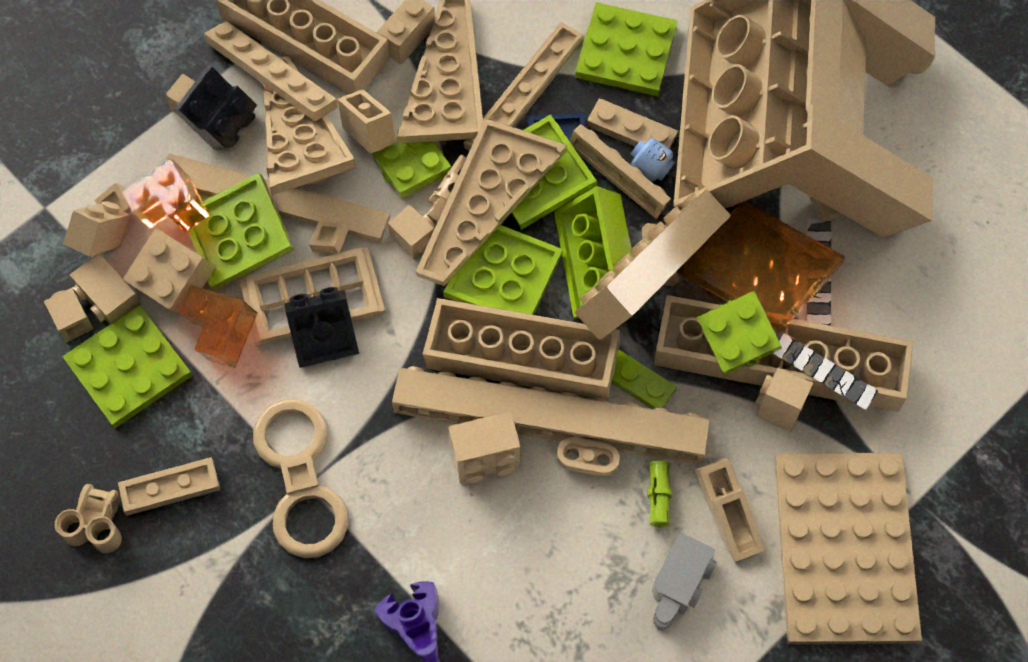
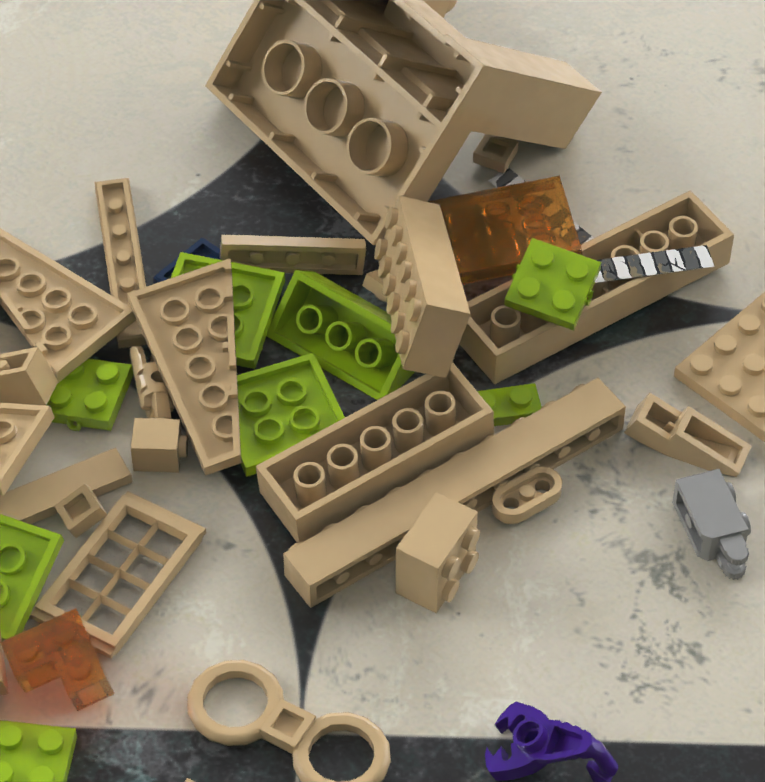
camera: 45 degrees left, 15 degrees down
(321, 327) = (167, 582): black plate -> none
(626, 49) = (179, 163): lime plate -> none
(628, 125) = (260, 218): tan plate -> none
(652, 159) = (308, 221): light blue head -> none
(659, 493) = (636, 489): lime pin -> none
(782, 398) = (638, 314): tan brick -> none

